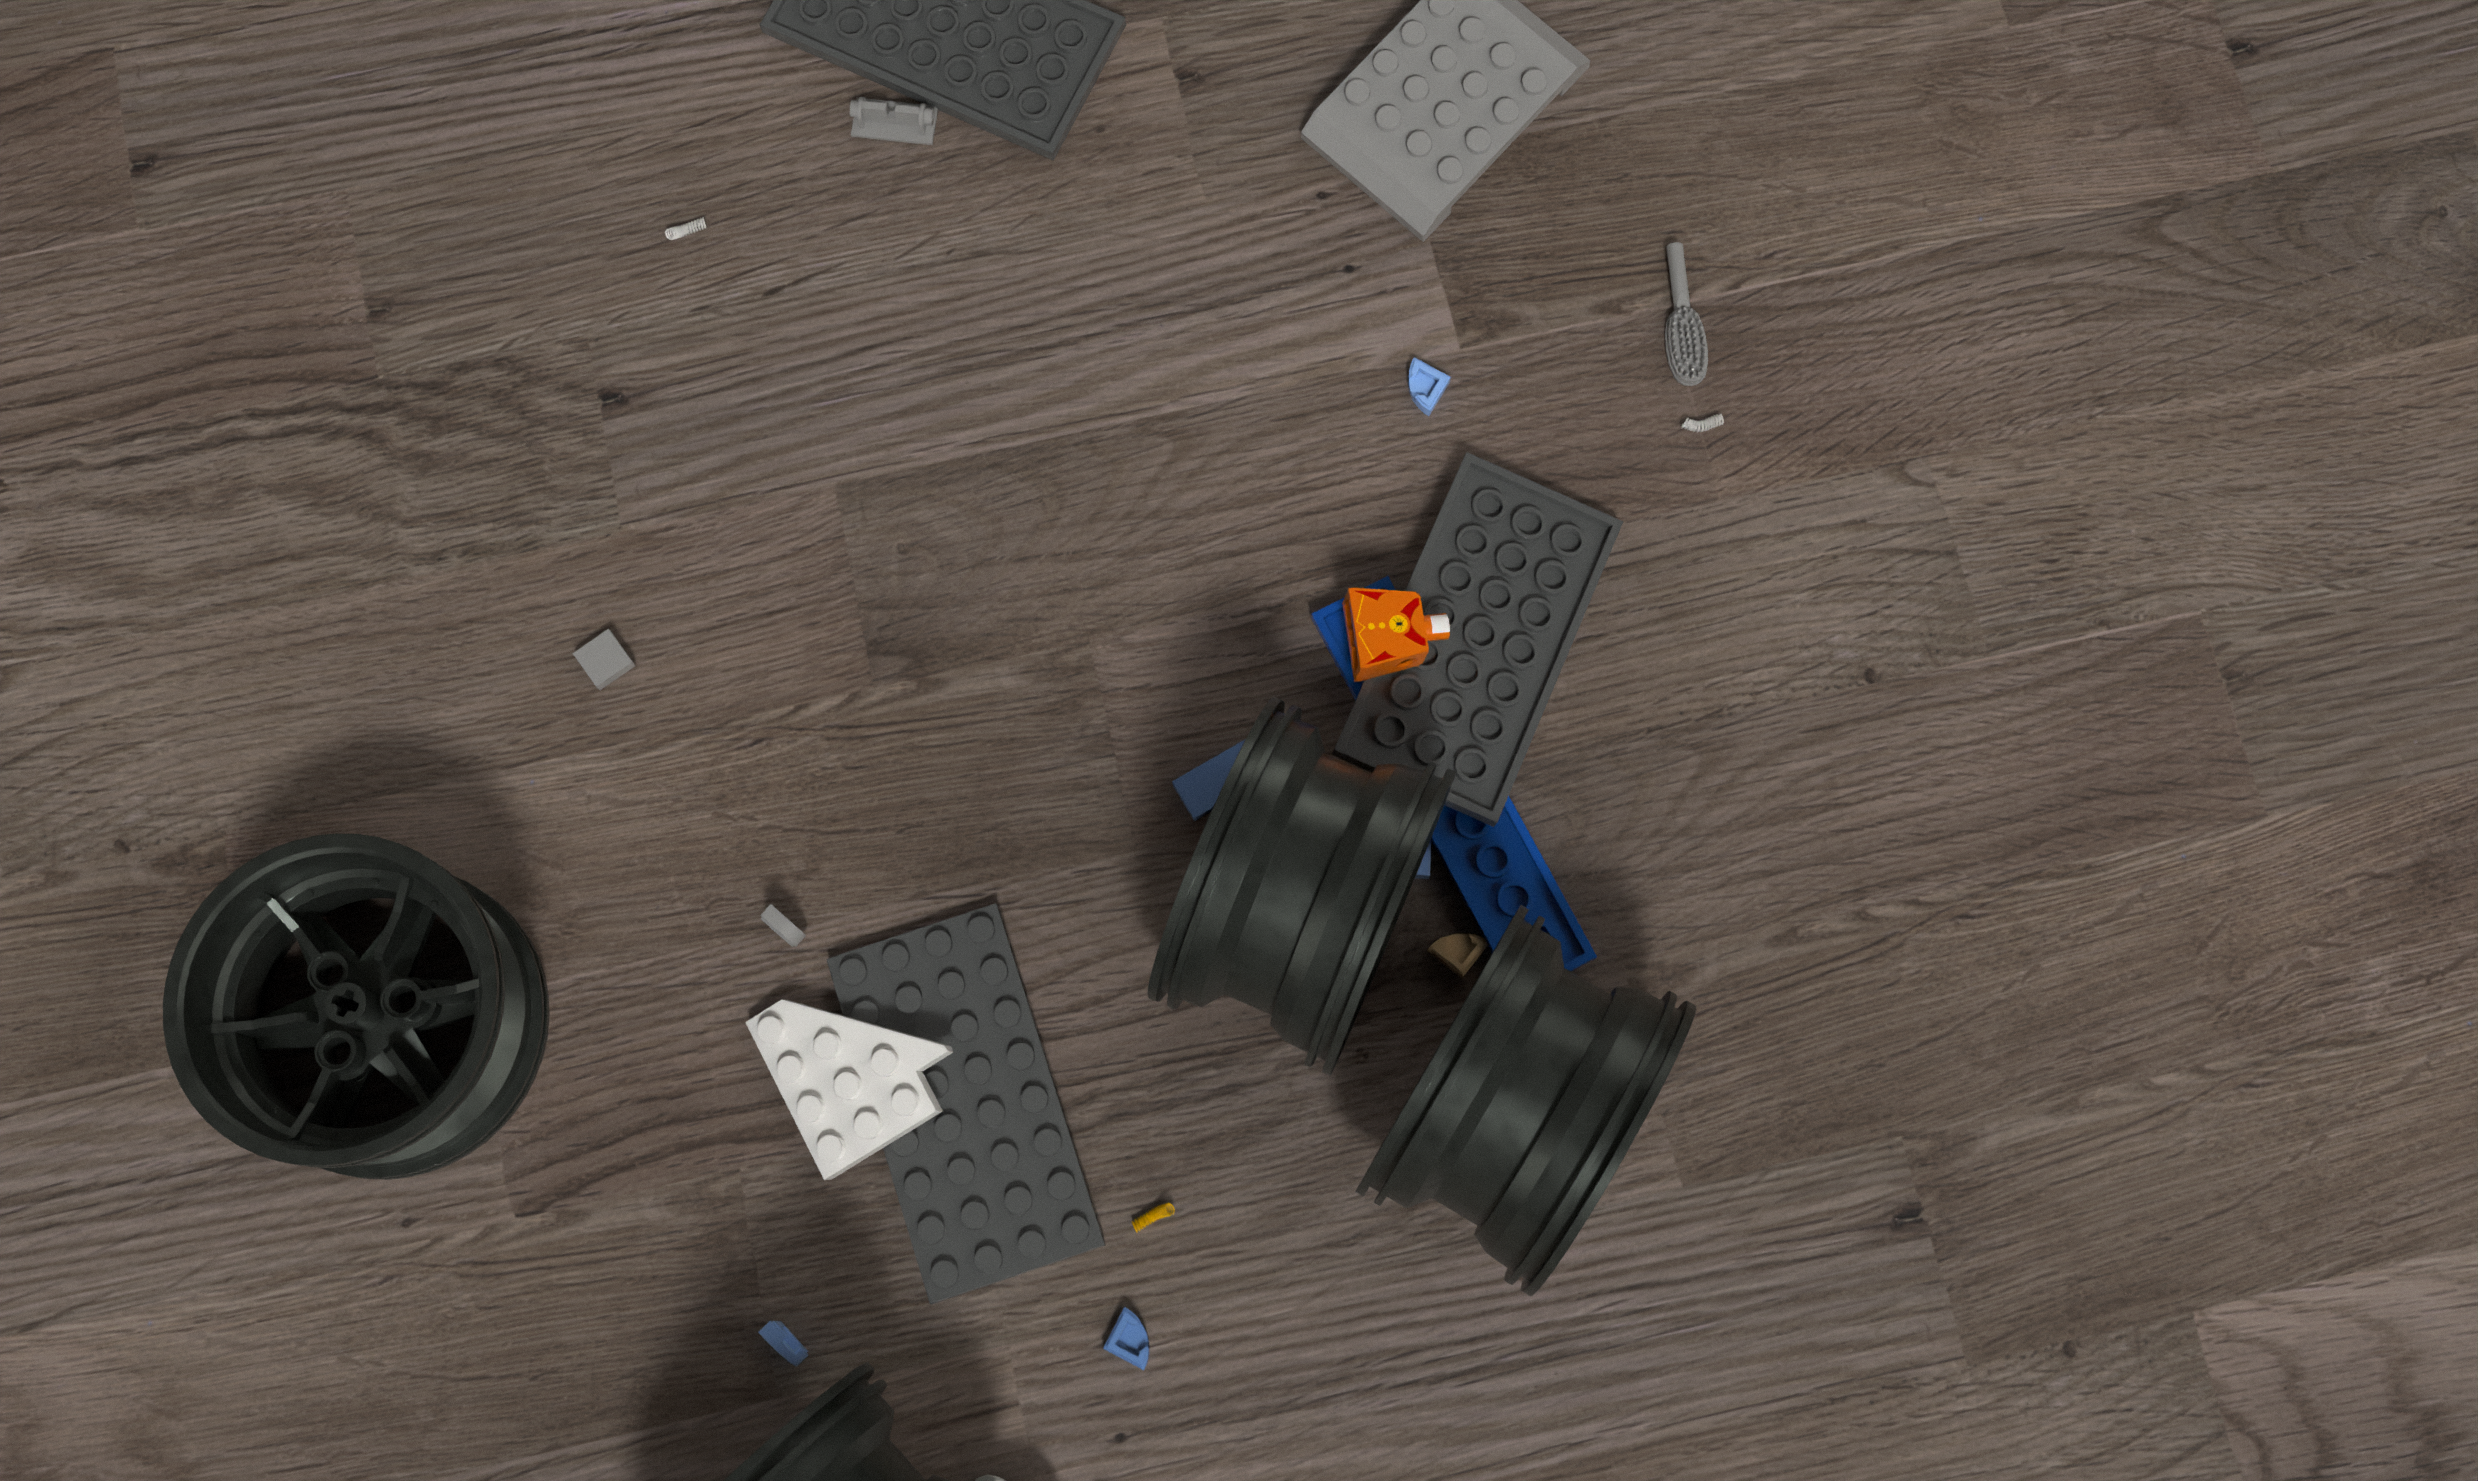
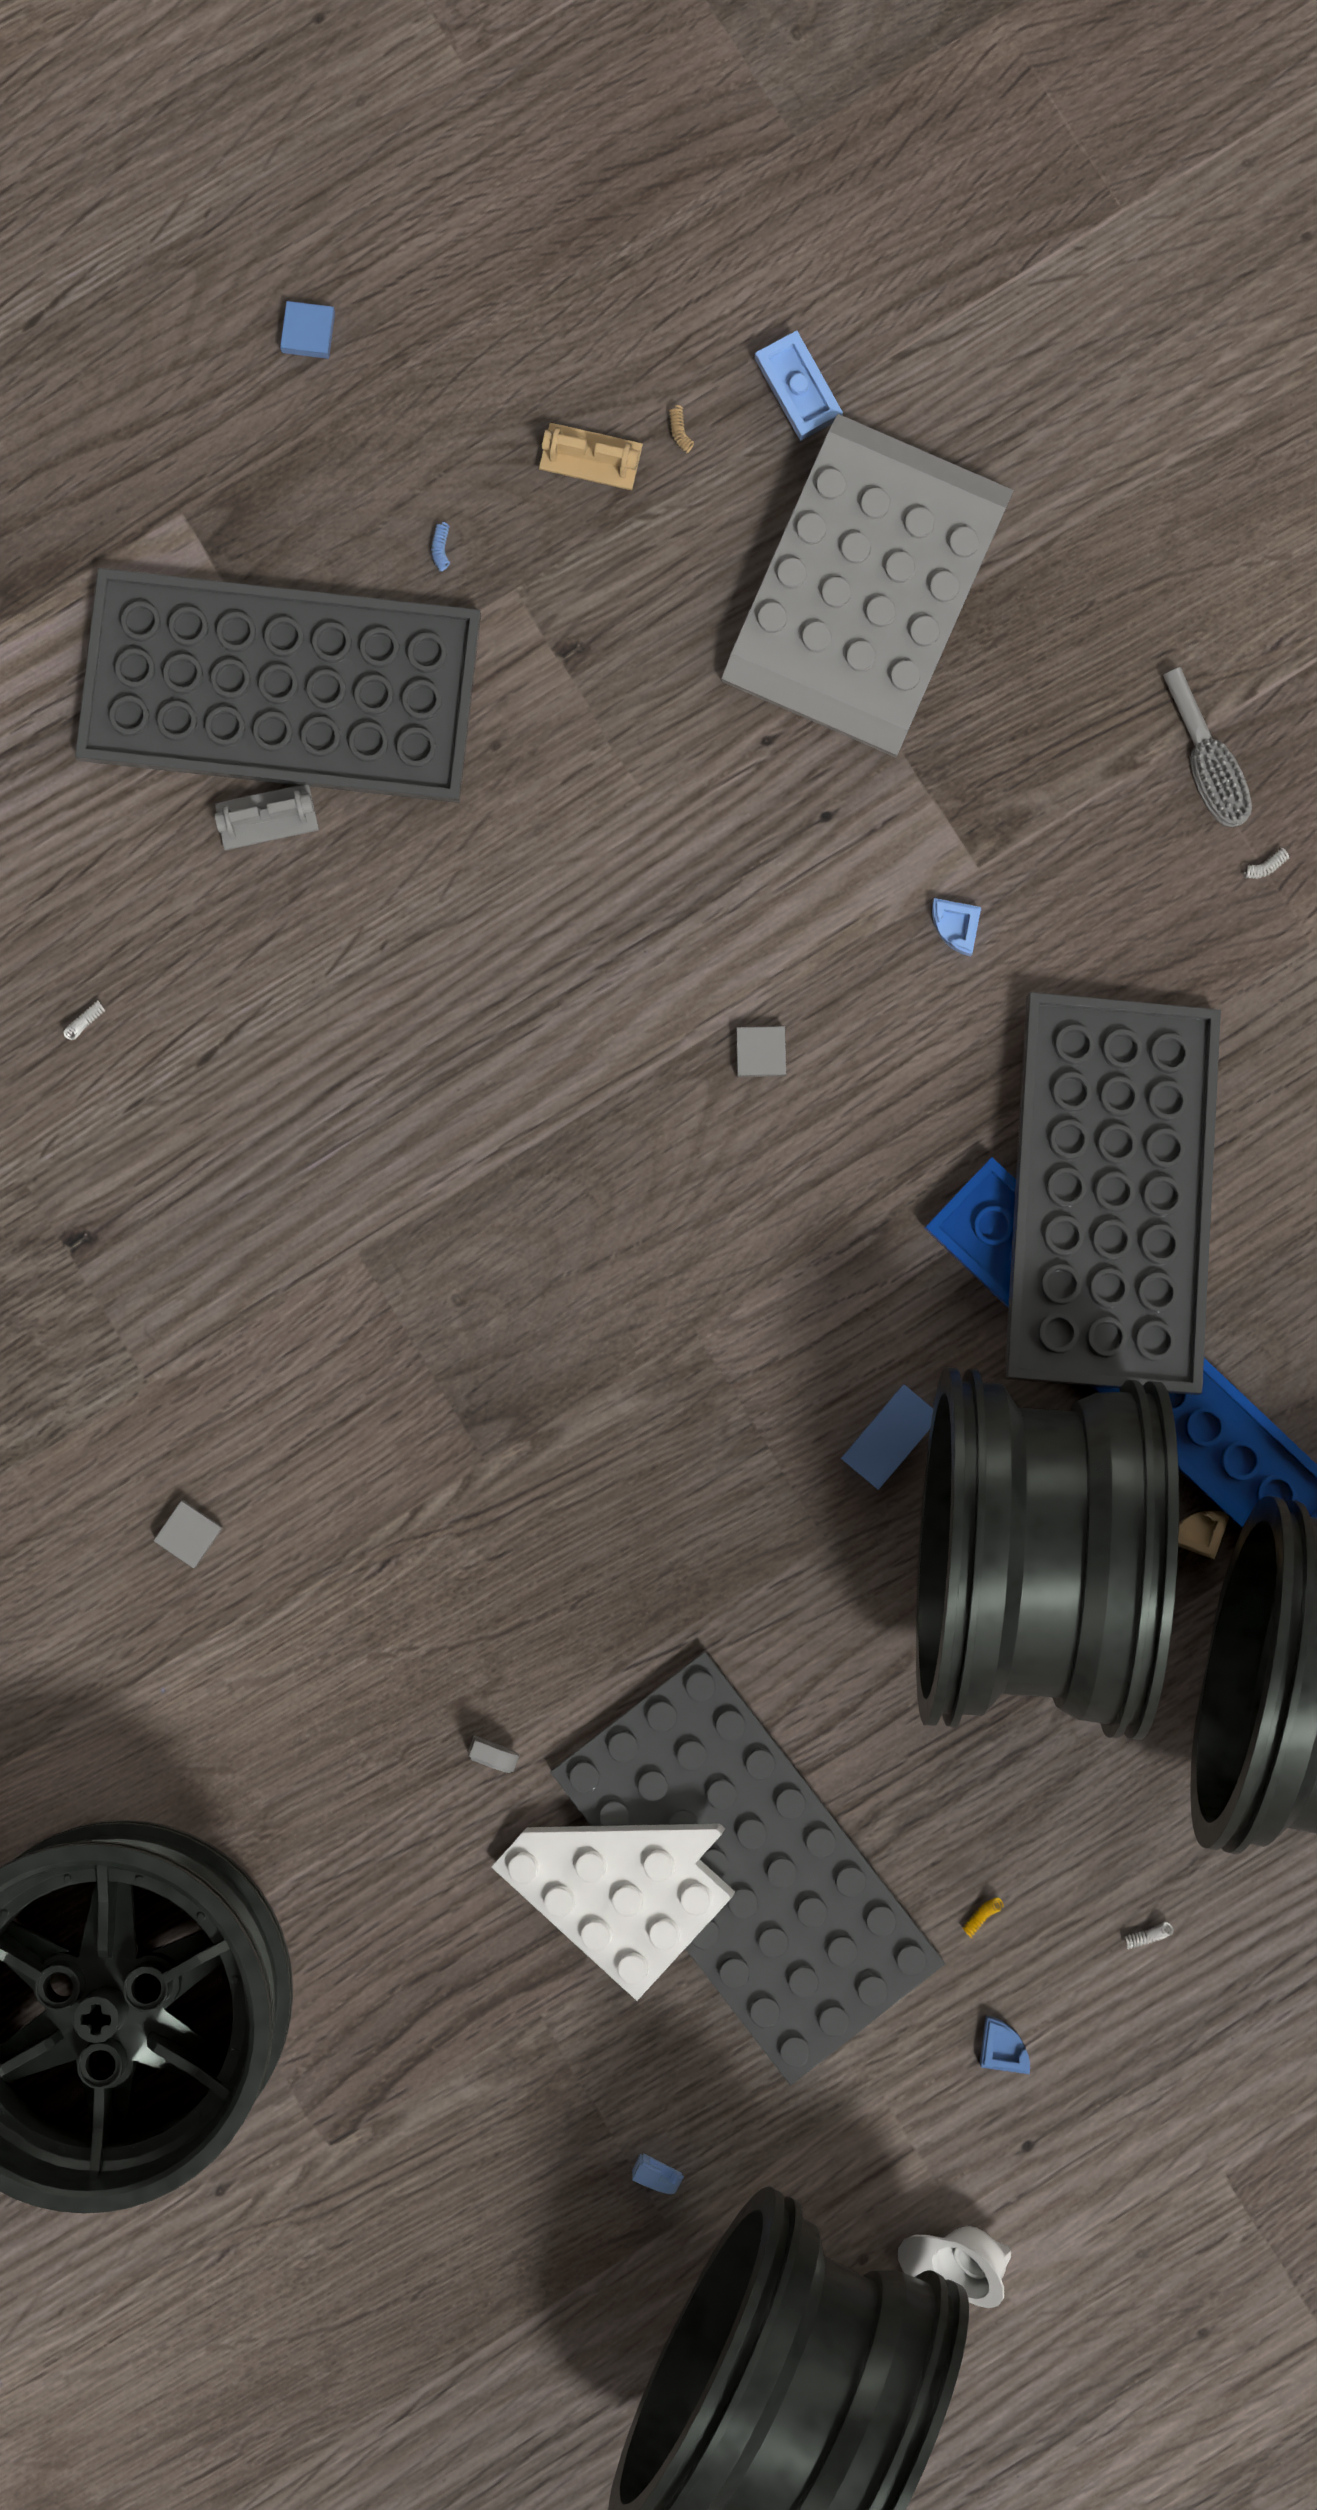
camera: 25 degrees left, 10 degrees up
(1226, 432) = (761, 1051): none -> light grey tile
(1292, 1286) = (1153, 1933): none -> white leg
(1388, 631) = (1023, 1230): orange torso -> none

